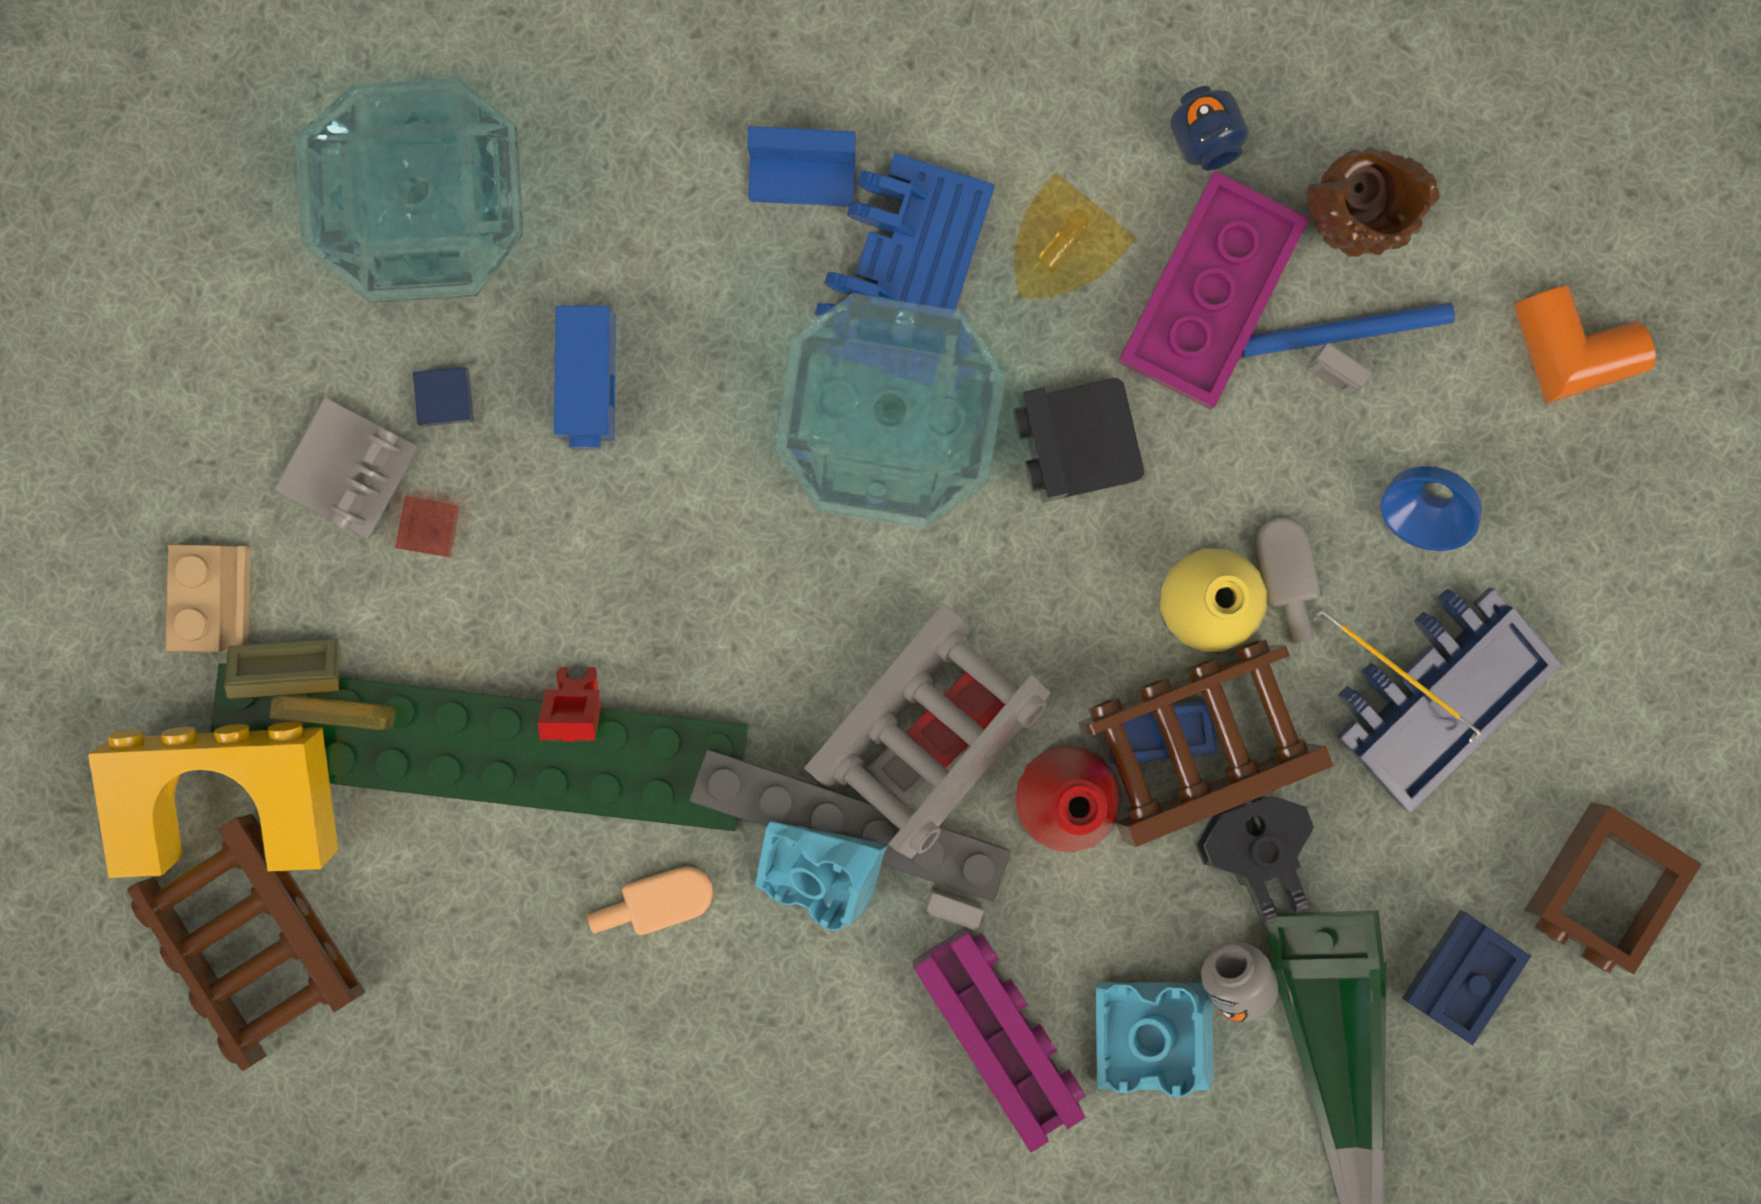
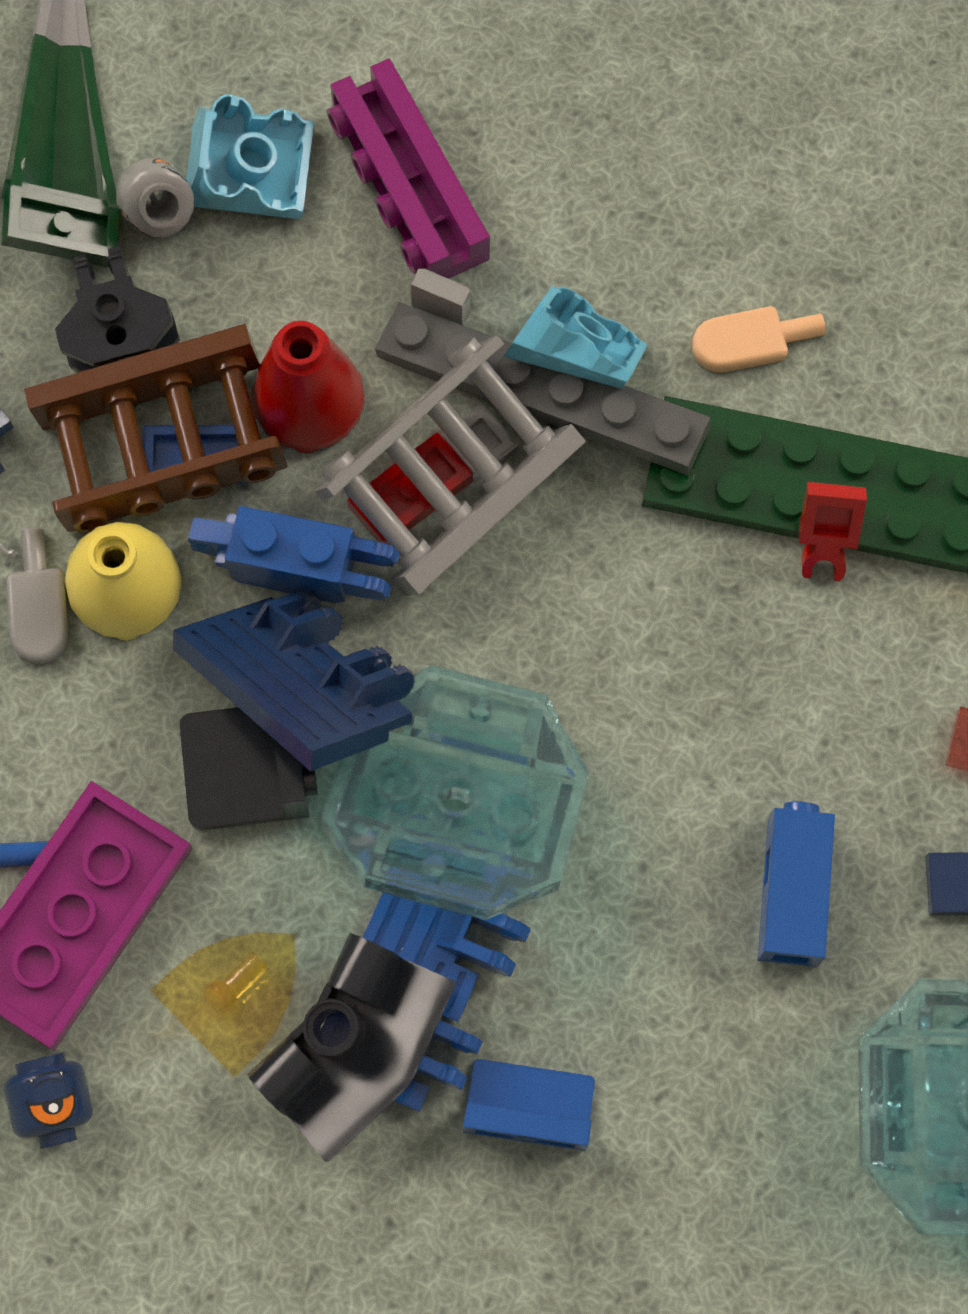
camera: 175 degrees left, 15 degrees down
(960, 157) = (345, 1087): none -> black panel
(1044, 492) = (295, 684): none -> dark blue hinge
(1063, 633) = (293, 554): none -> blue hinge

